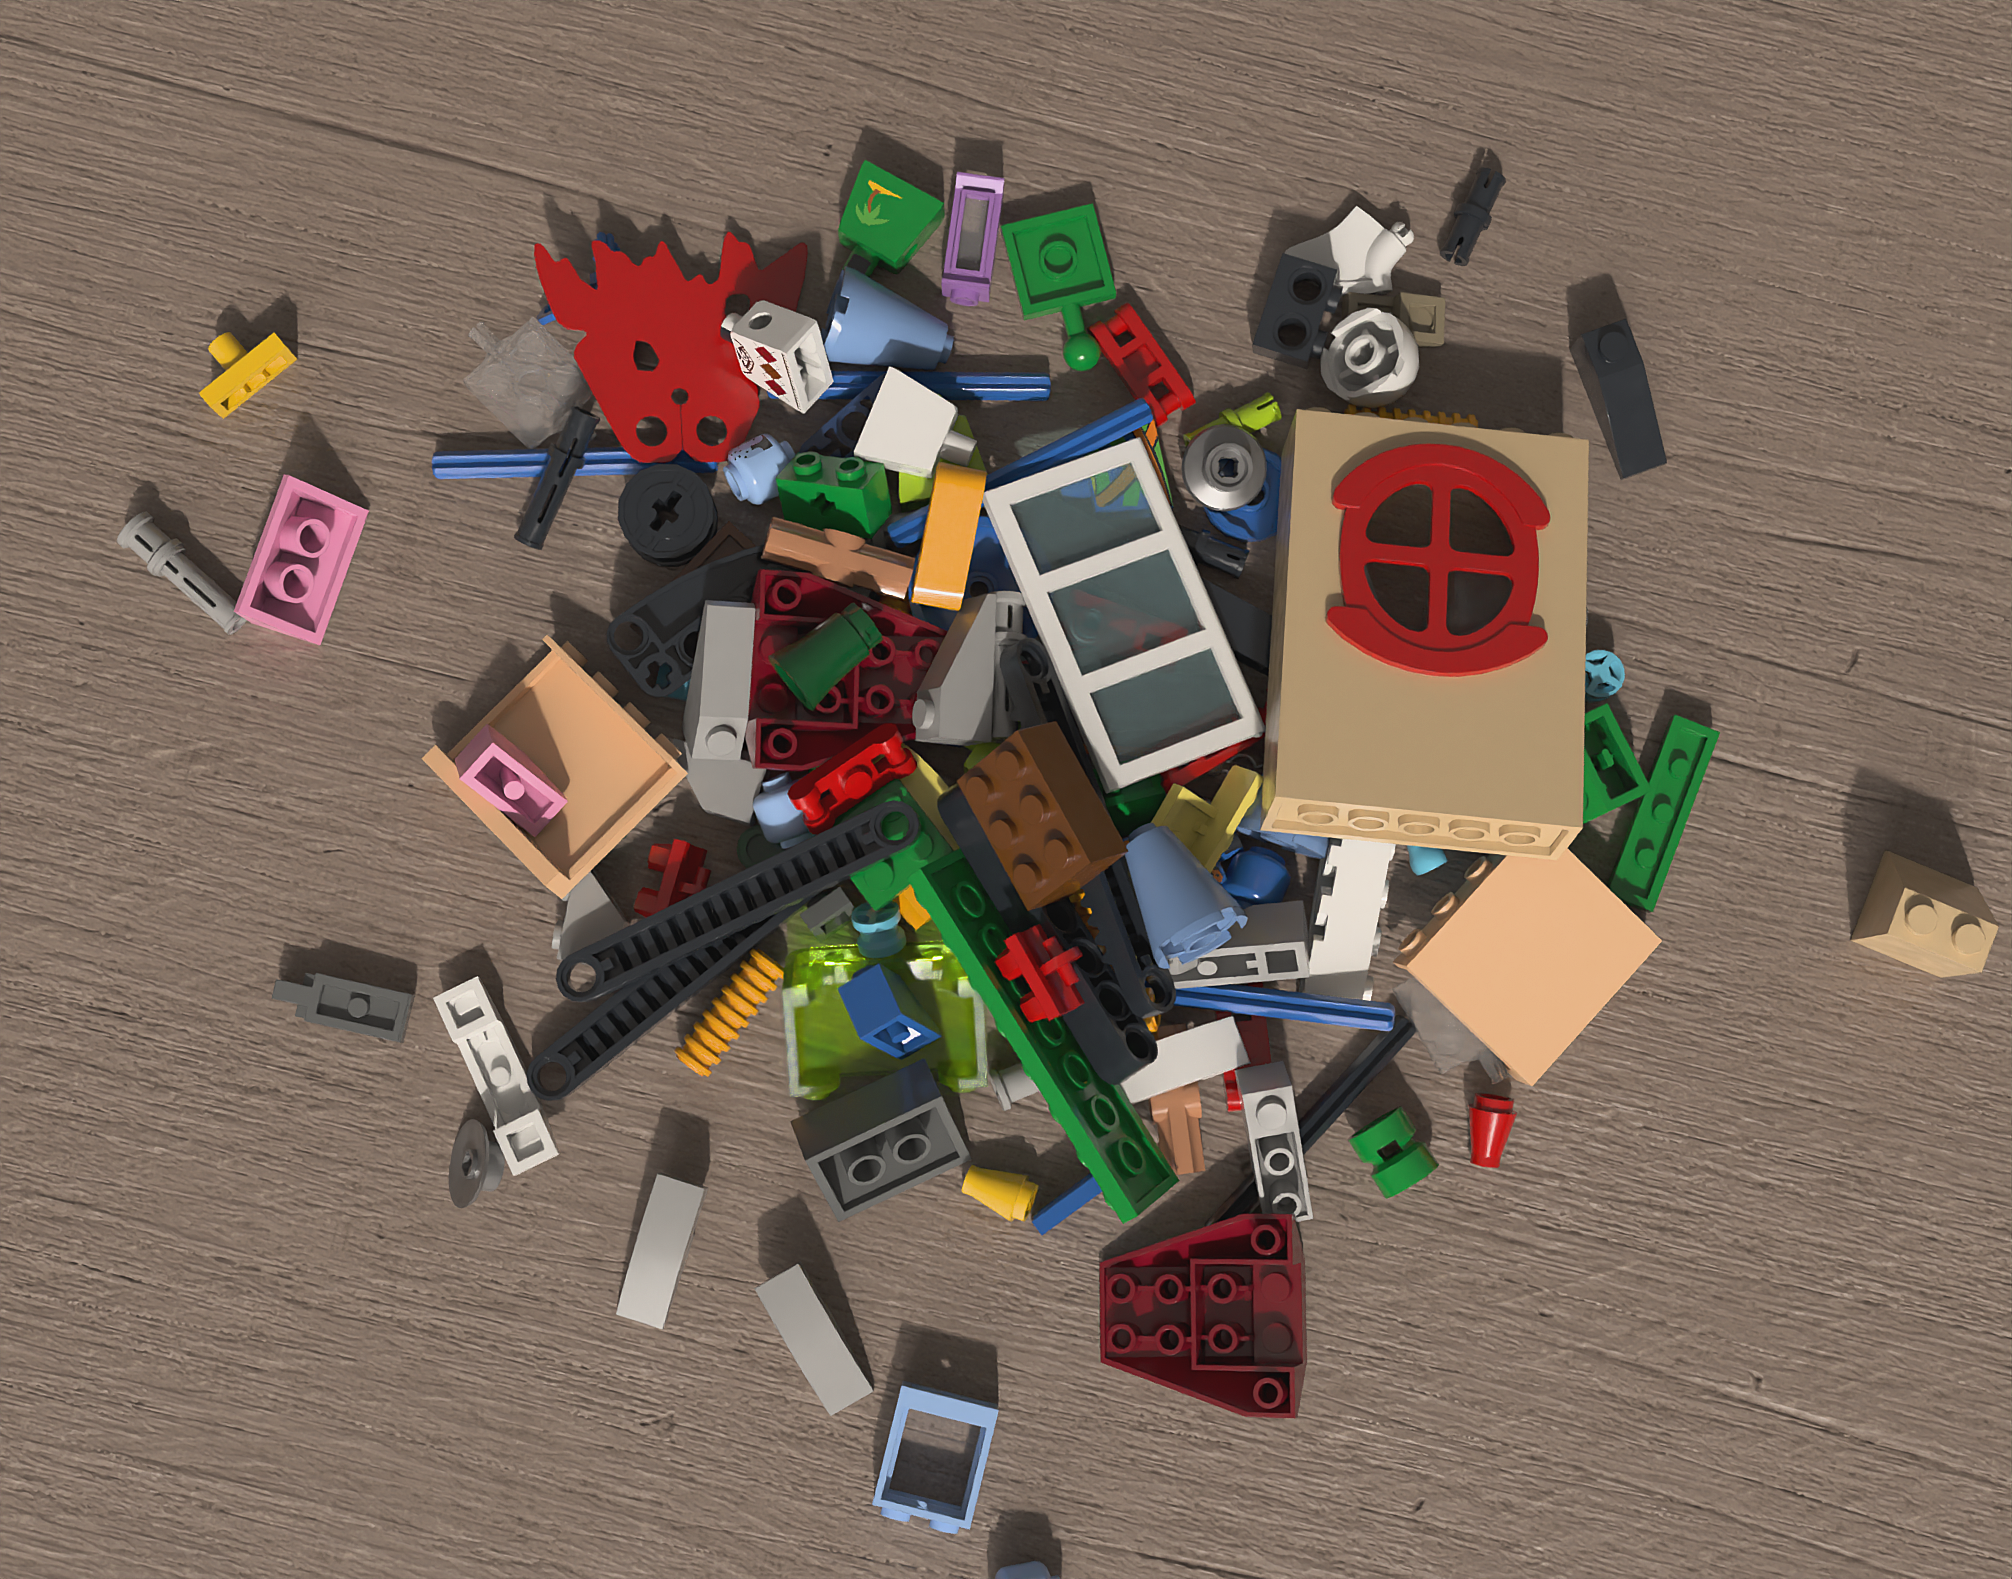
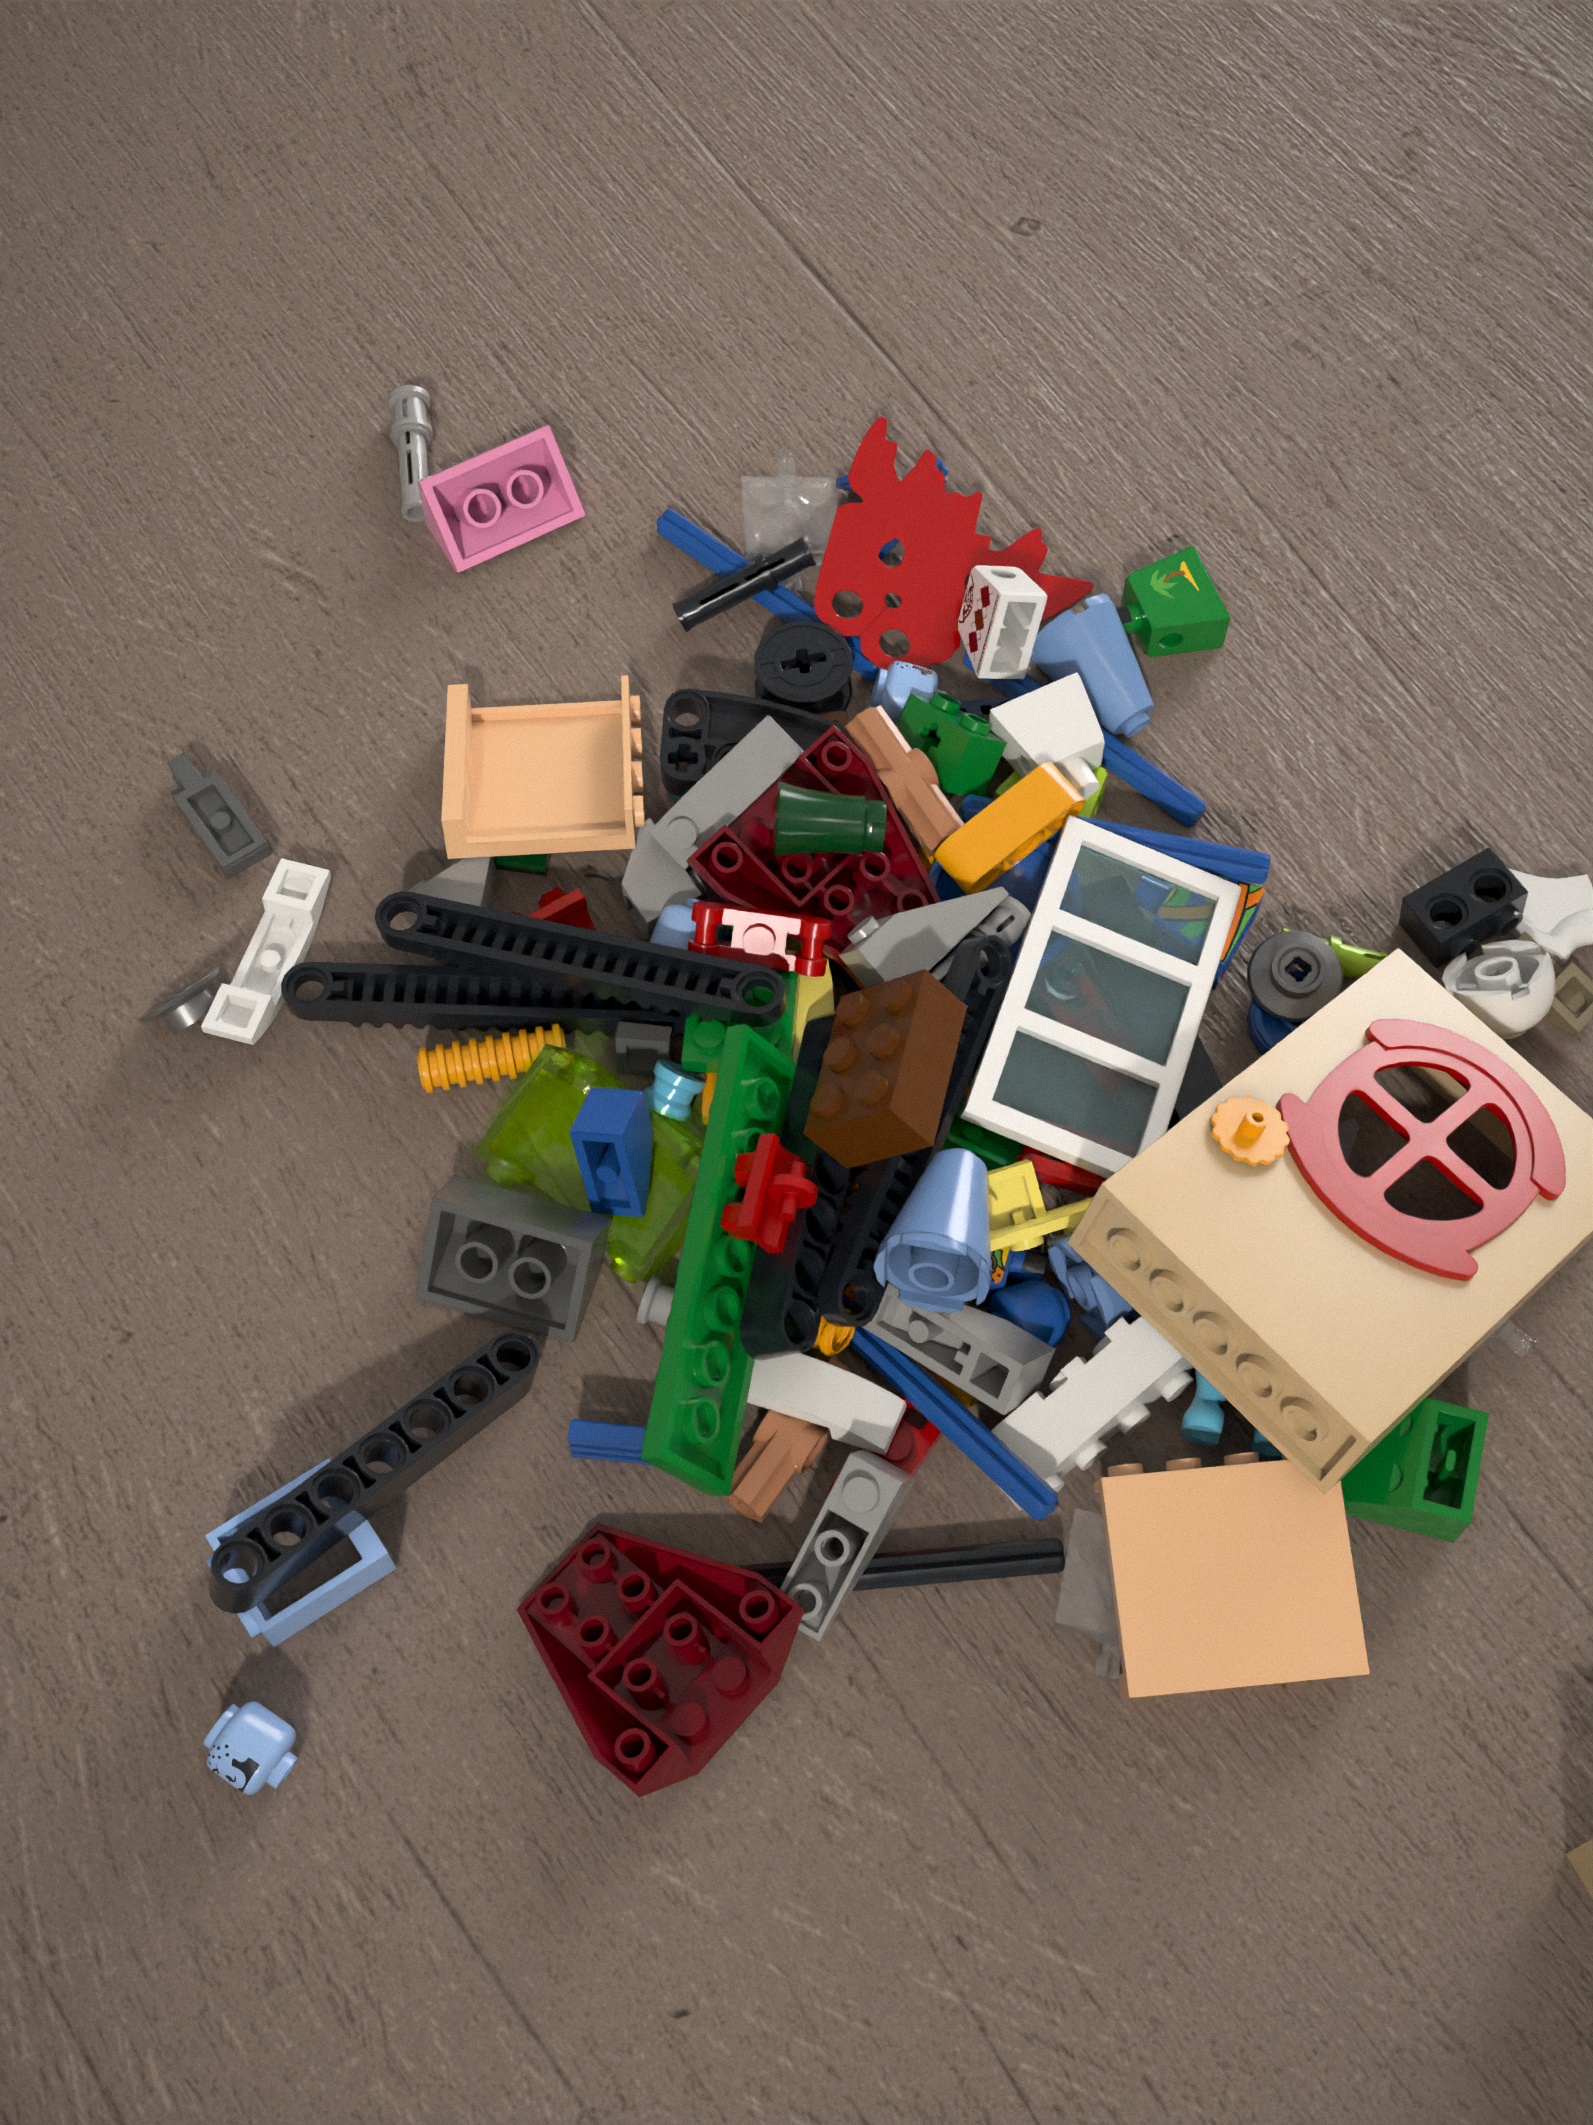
camera: 45 degrees right, 20 degrees down
(244, 371) = (590, 362): yellow tile -> none
(509, 780) = (494, 744): bright pink slope -> none
(661, 1250) = (255, 1188): light grey slope -> none
(814, 1338) = (300, 1364): light grey slope -> none
(936, 1389) = (367, 1490): none -> black beam
(972, 238) = (1232, 667): medium lavender window -> none
(1001, 1191) = (571, 1385): yellow cone -> none
(1058, 268) = (1285, 739): green plate -> none
(1141, 363) = (1293, 856): red plate -> none
(1214, 552) = (1222, 1029): black pin -> none
(1330, 663) = (1249, 1130): none -> light orange piece
(1403, 1166) = (942, 1670): green wheel -> none
(1490, 1126) = (1057, 1712): red cone -> none
(1603, 668) = (1505, 1392): medium azure wheel -> none
(1662, 813) = (1465, 1572): green plate -> none

